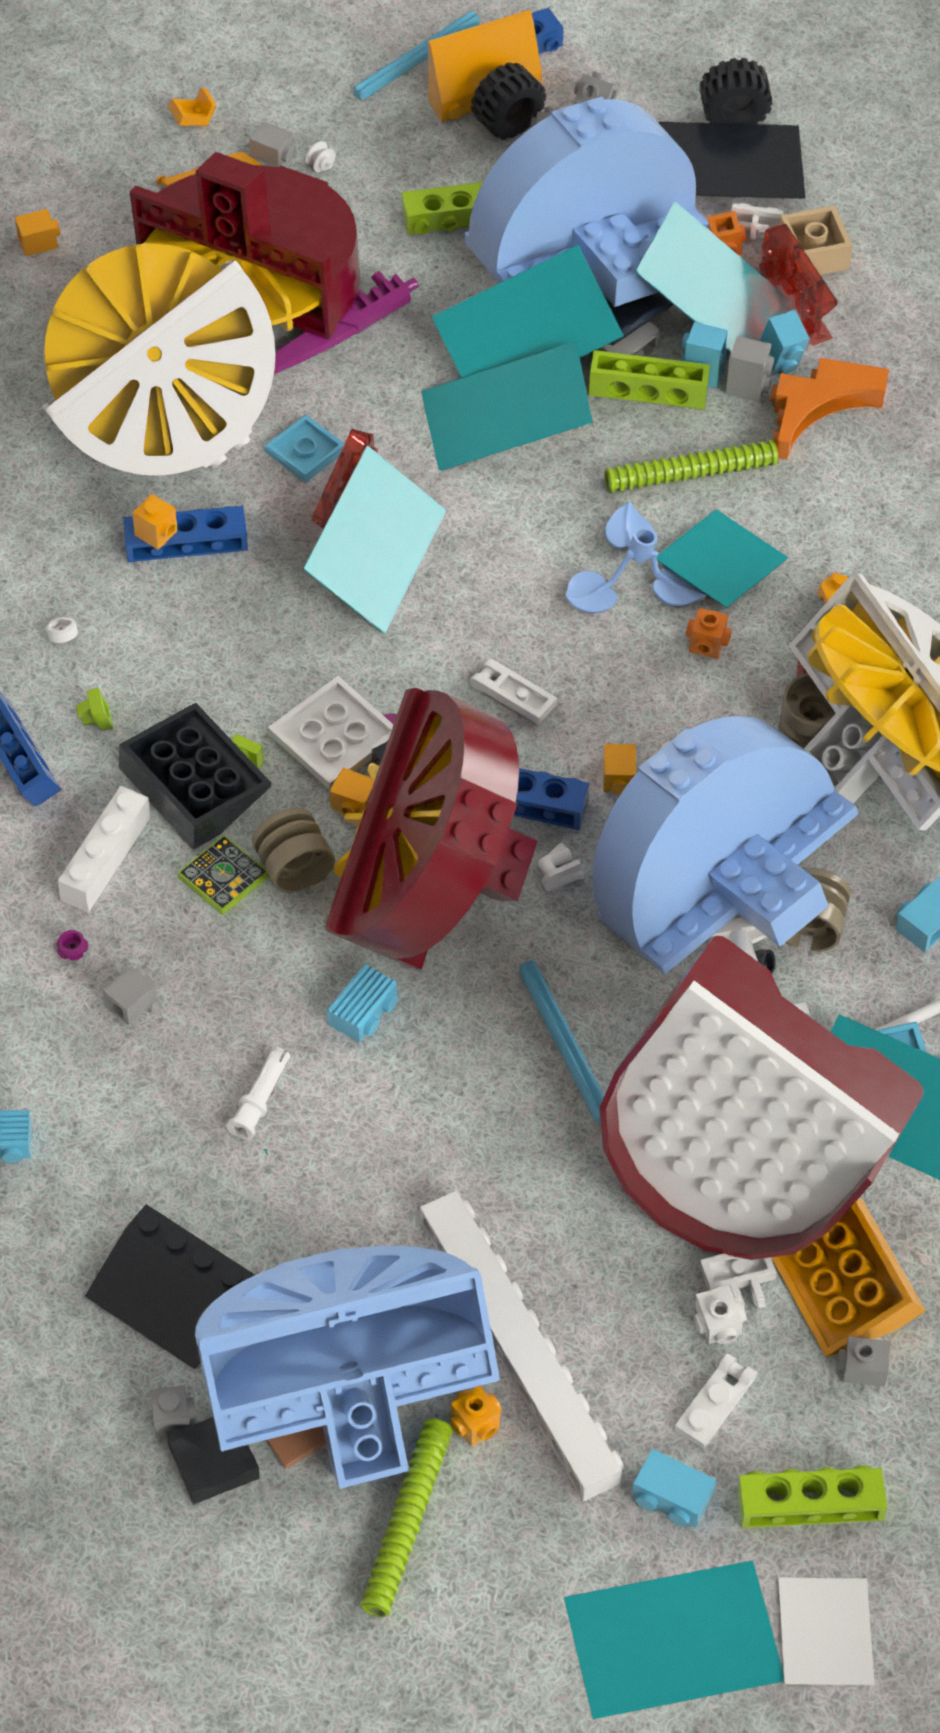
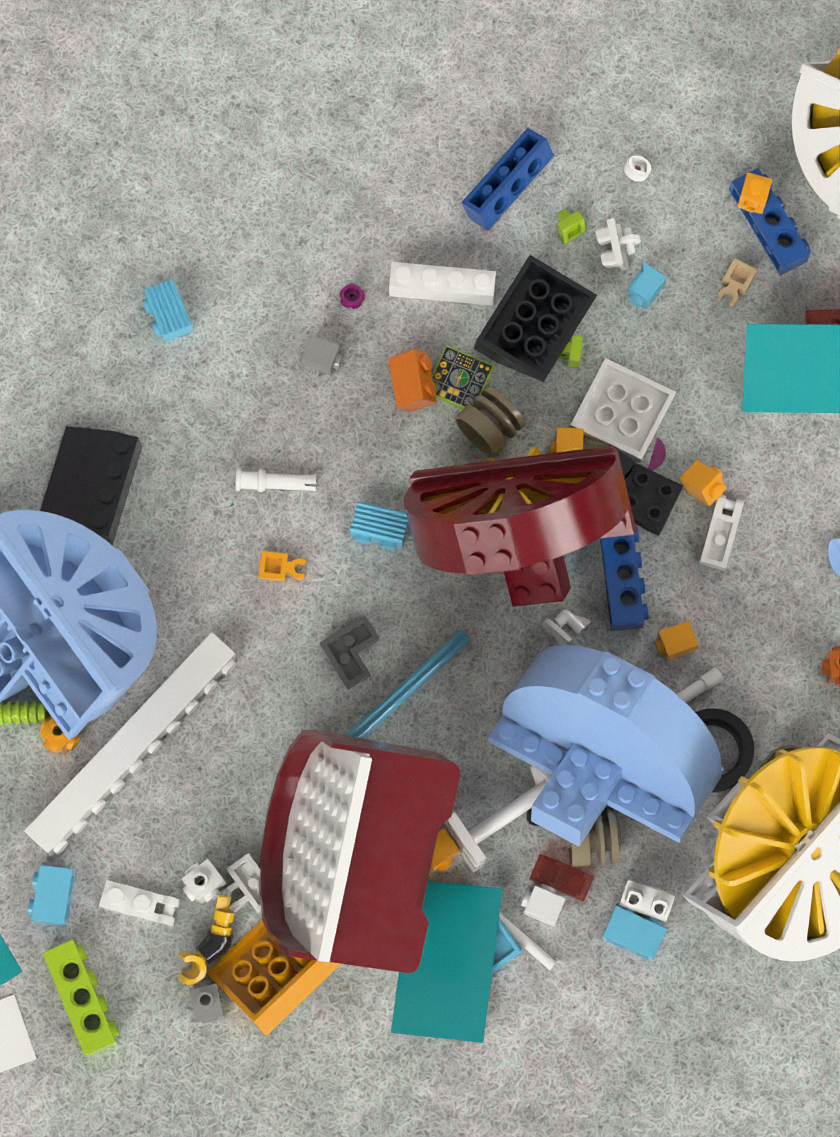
camera: 70 degrees right, 20 degrees up
(141, 668) = (613, 234): none -> white hips
(202, 663) = (645, 286): none -> medium azure window
(206, 912) = (412, 380): none -> orange brick
(237, 583) = (737, 280): none -> tan plate
(366, 1123) = (276, 566): none -> light orange plate
(455, 680) = (703, 482): none -> light orange brick
(499, 1090) = (343, 651): none -> dark grey plate
(800, 1335) = (213, 946): none -> yellow piece
(843, 963) = (561, 877): none -> clear red slope
(870, 986) = (543, 904): none -> white brick
(902, 883) = (647, 900): none -> white hips

